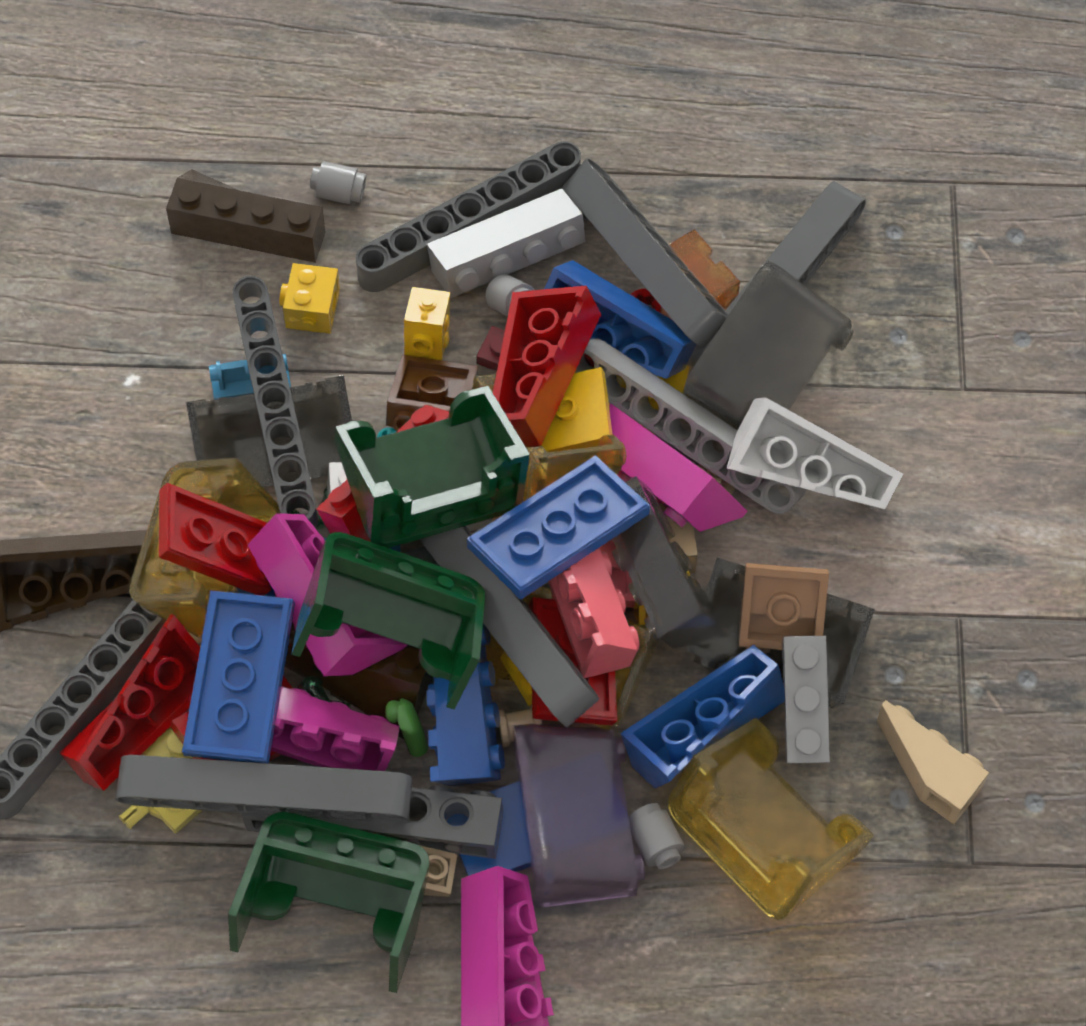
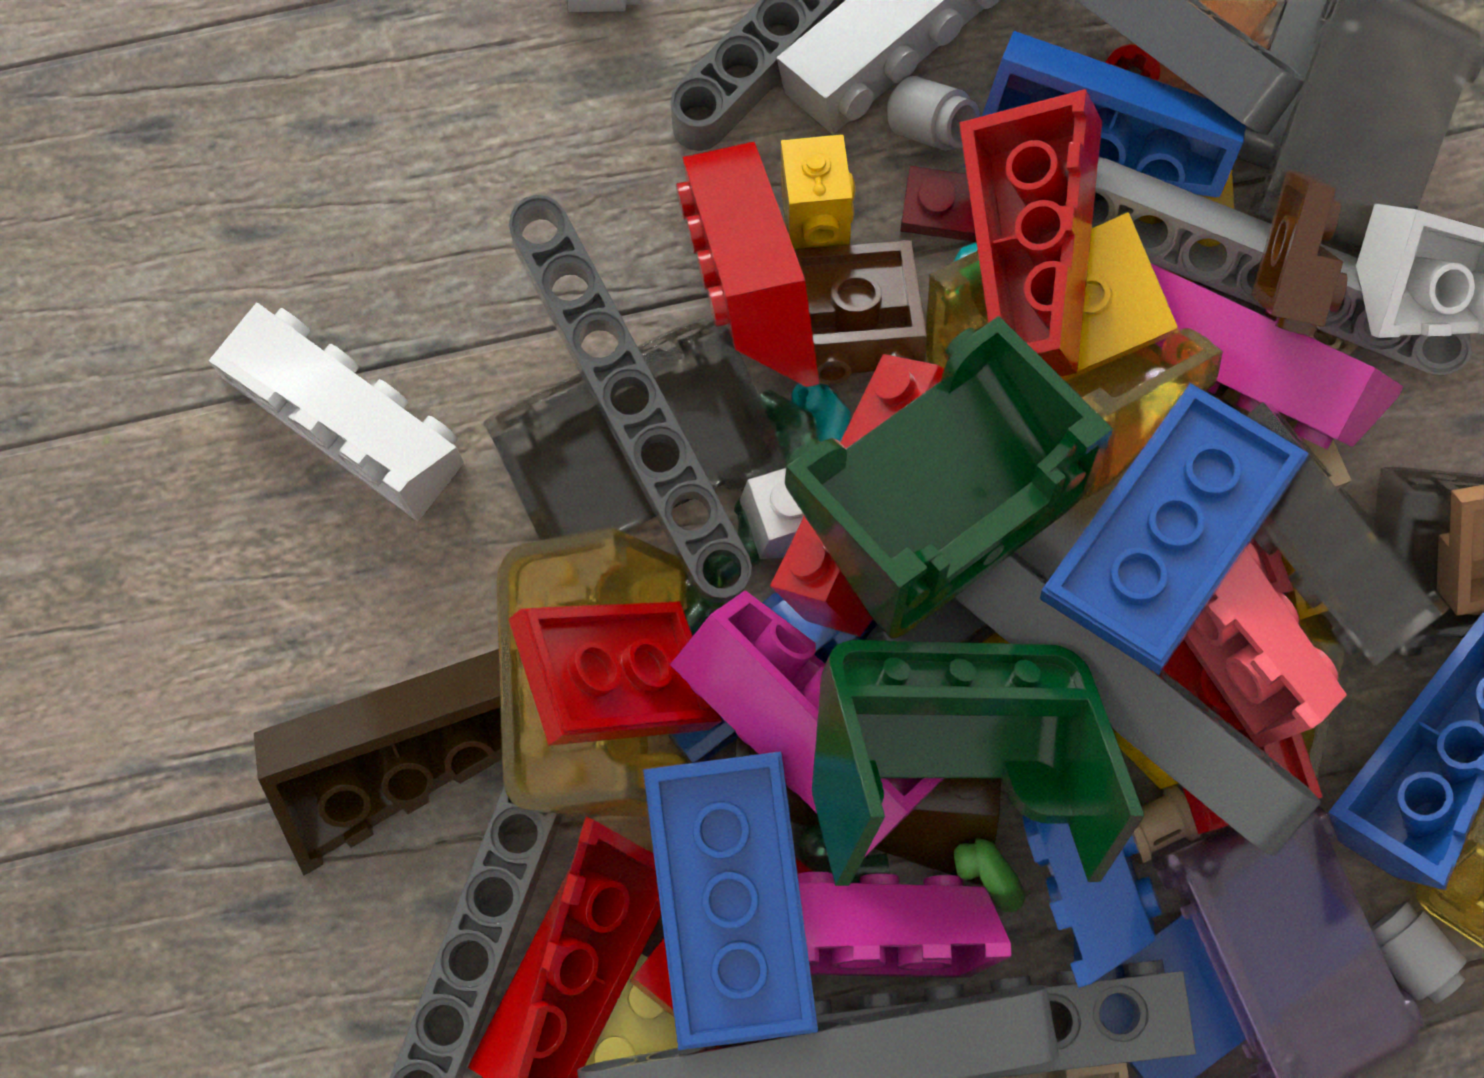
camera: 15 degrees left, 15 degrees up
(106, 380) = (338, 410): none -> white wedge
(233, 378) = (539, 356): dark azure hinge -> none
(242, 219) = (444, 77): dark brown wedge -> none
(310, 298) = (615, 189): yellow head -> none
(369, 347) = (748, 259): none -> wedge
(684, 419) = (1296, 274): none -> reddish brown plate

